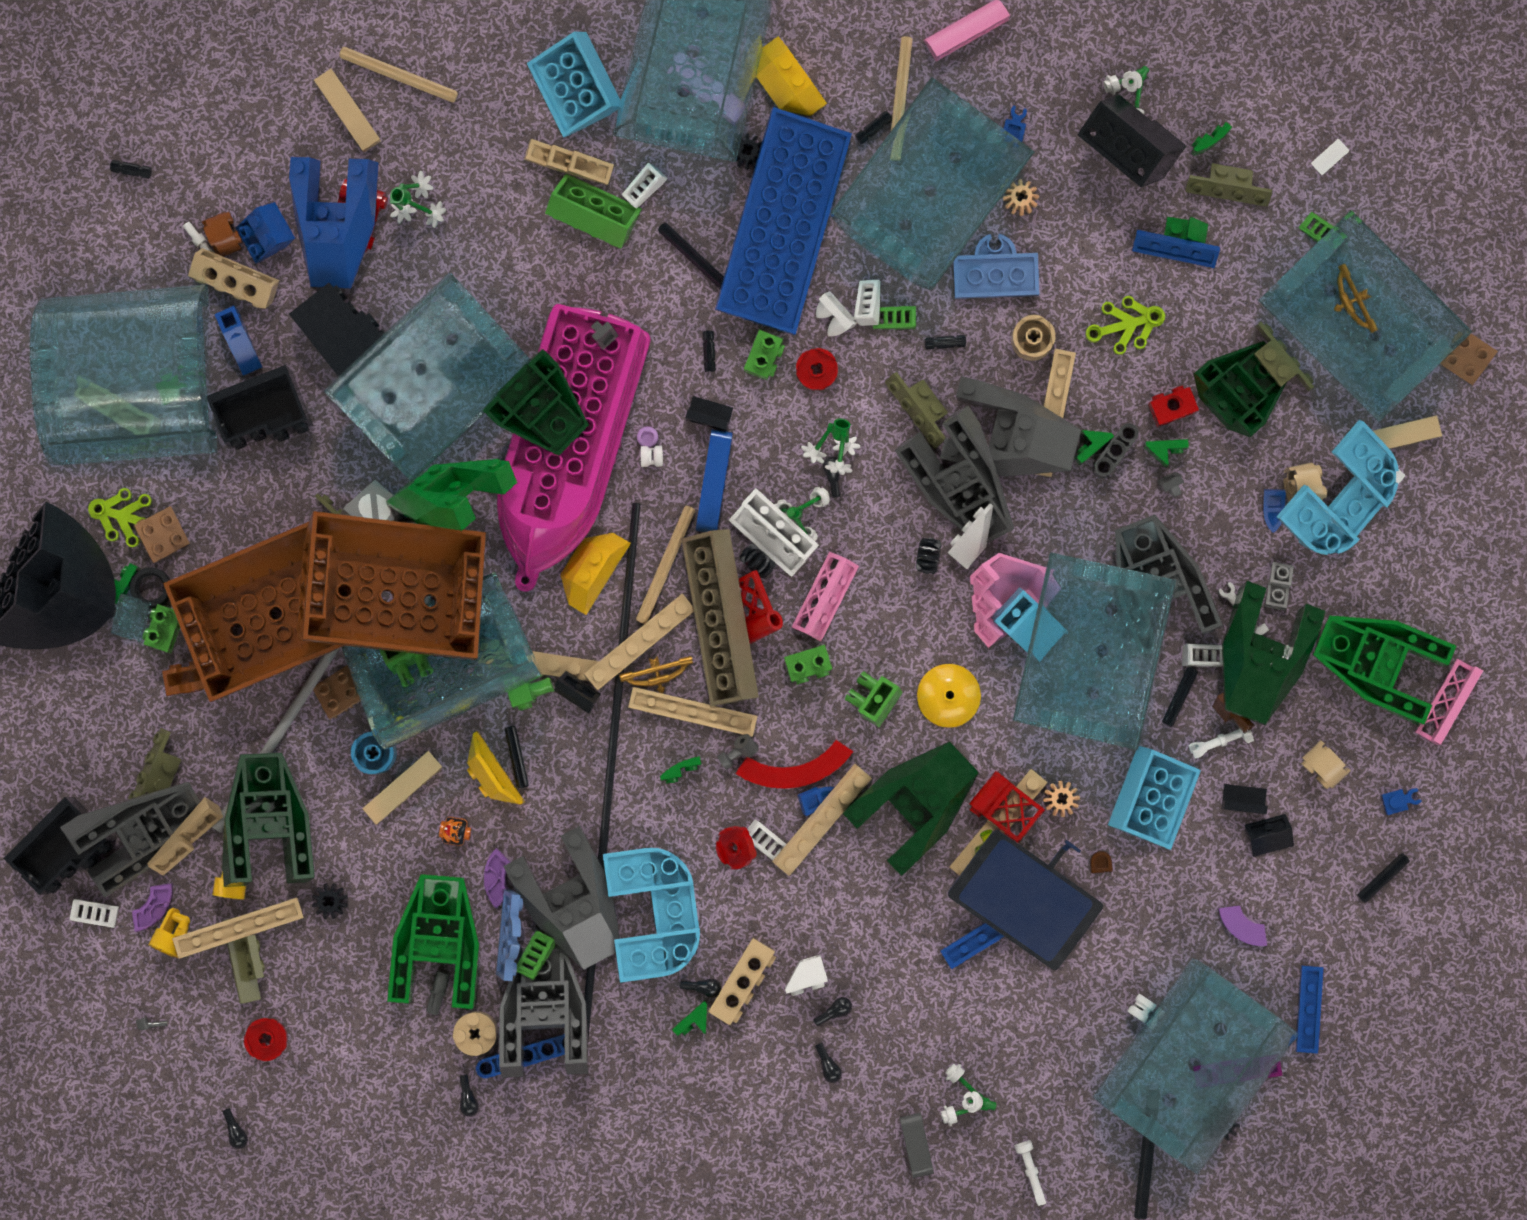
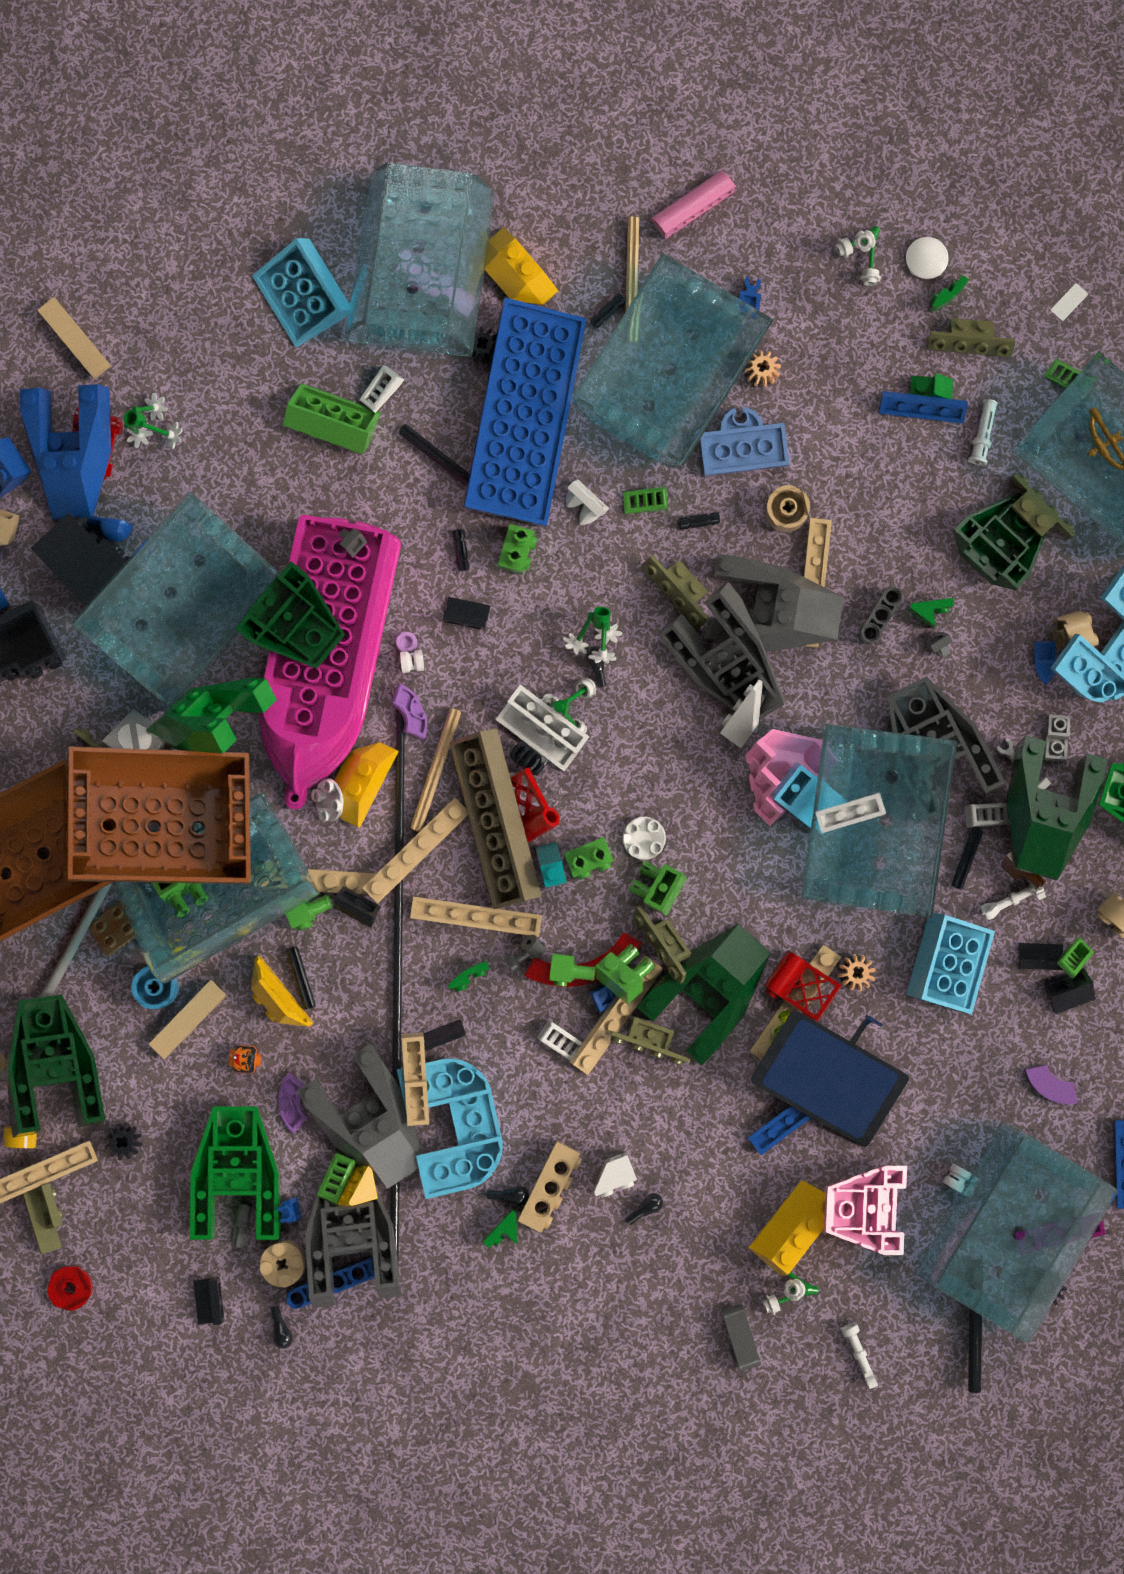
camera: 10 degrees left, 0 degrees up
(237, 1136) = (48, 1388): black piece -> none
(368, 301) = (111, 528): none -> blue cap
(398, 74) = (123, 297): tan axle -> none
(400, 1064) = (209, 1301): none -> black panel
(486, 982) = (290, 1210): none -> blue plate
(509, 931) = (308, 1160): medium blue plate -> none
(557, 966) = (359, 1188): none -> yellow slope
(558, 585) = (328, 800): none -> white dish
(569, 162) = (303, 371): tan slope -> none
(620, 864) = (415, 1079): none -> tan slope
(647, 505) = (413, 714): none -> medium lavender tile
(650, 824) = (443, 1034): none -> black slope
(656, 667) = (434, 875): pearl gold piece -> none
(714, 480) = (477, 681): blue beam -> none
(745, 847) = (541, 1050): red plate -> none
(770, 668) = (551, 865): none -> teal slope
(775, 771) = (565, 970): none -> bright green brick
(815, 357) = (567, 548): red plate -> none
(828, 597) = (603, 789): bright pink fence -> none
(828, 784) = (621, 979): none -> bright green brick
(831, 1070) = (647, 1268): black piece -> none
(853, 844) = (649, 1037): none -> olive bracket
(863, 315) = (621, 500): white slope -> none
(864, 649) = (644, 838): none -> white dish
(877, 753) = (666, 941): none -> olive bracket
(928, 555) = (701, 738): black gear -> none
(933, 699) = (717, 877): yellow dish -> none
(977, 1042) = (791, 1229): none -> yellow slope
(1049, 1030) = (865, 1209): none -> bright pink wedge
(1067, 641) = (850, 812): none -> white plate
(1096, 441) = (860, 607): green slope -> none
(1101, 862) = (902, 1033): reddish brown tile -> none
(1128, 323) = (882, 486): lime plant -> none
(1131, 140) = (869, 301): black piece -> none
(1186, 406) = (947, 563): red brick -> none
(1193, 101) = (927, 258): none -> white dish
(1230, 288) = (982, 442): none -> white pin
(1280, 800) = (1078, 954): none -> bright green slope

